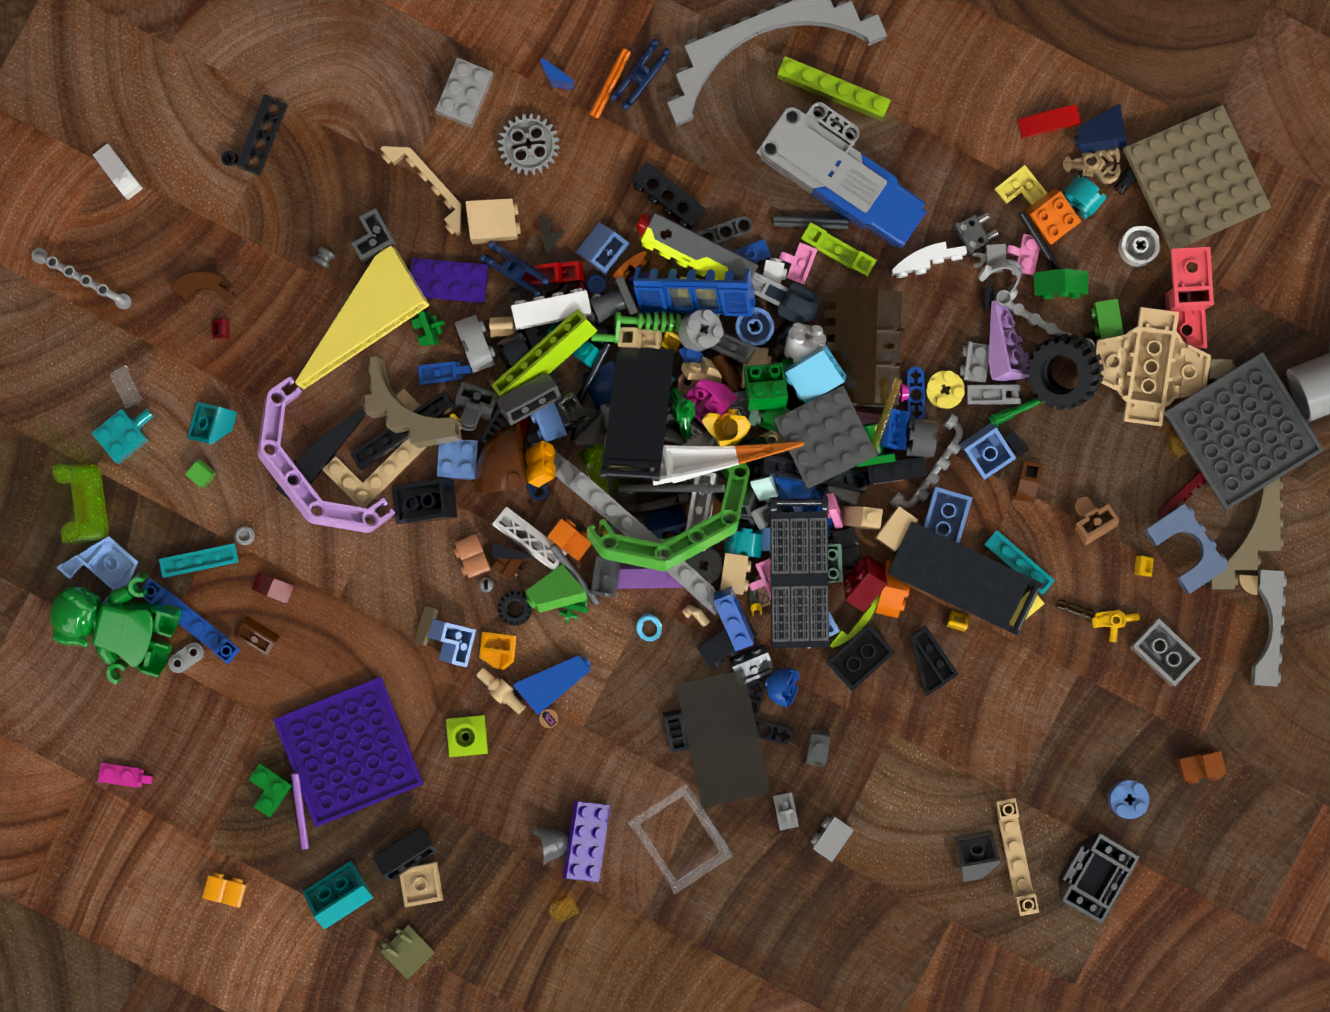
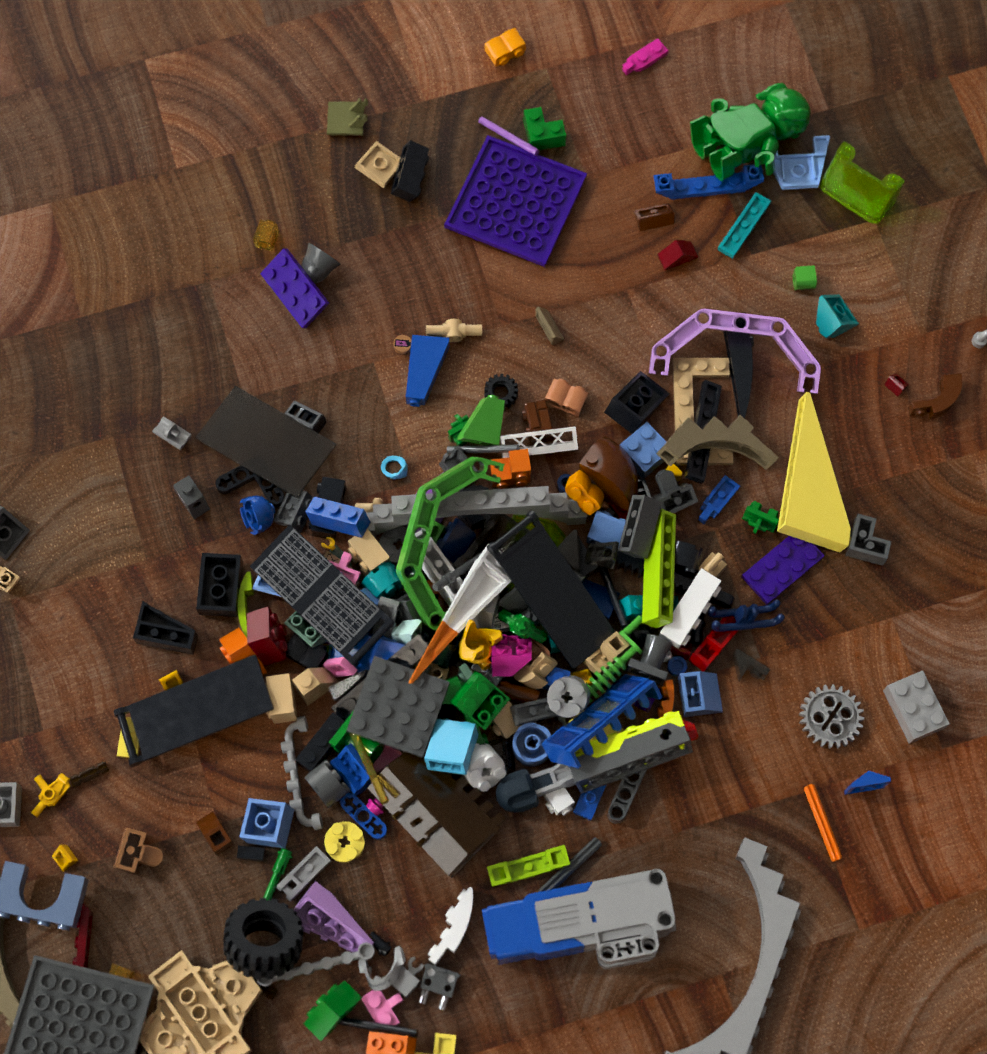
camera: 140 degrees right, 15 degrees down
(122, 434) = (882, 253): teal brick -> none
(126, 386) = (914, 289): clear slope -> none
(186, 658) = (686, 160): light grey plate -> none
(244, 535) = (732, 269): light grey plate -> none
(323, 257) = (884, 496): dark grey wheel -> none
(337, 895) = (428, 109): teal slope -> none
(396, 154) = (823, 610): tan slope -> none
(456, 641) = (520, 330): medium blue brick -> none
(474, 343) = (710, 536): light grey brick -> none
(475, 727) = (446, 281): lime plant -> none
(490, 584) = (535, 392): light grey hinge -> none
(492, 220) = (798, 633): tan slope -> none
(497, 649) = (485, 355): light orange slope -> none
(504, 552) = (544, 415): black slope -> none
(640, 75) = (807, 849): dark blue piece -> none
(649, 173) = (664, 789): black brick -> none
(725, 852) = (194, 343): clear piece -> none
(800, 262) = (547, 828): bright pink plate -> none
(831, 837) = (120, 443): light grey brick -> none
(833, 88) = (656, 986): lime brick -> none
(947, 513) = (253, 746): medium blue brick -> none
(975, 362) = (341, 885): light grey bracket -> none
(1017, 560) = (166, 767): teal plate -> none
(1107, 319) = (269, 1019): bright green brick -> none

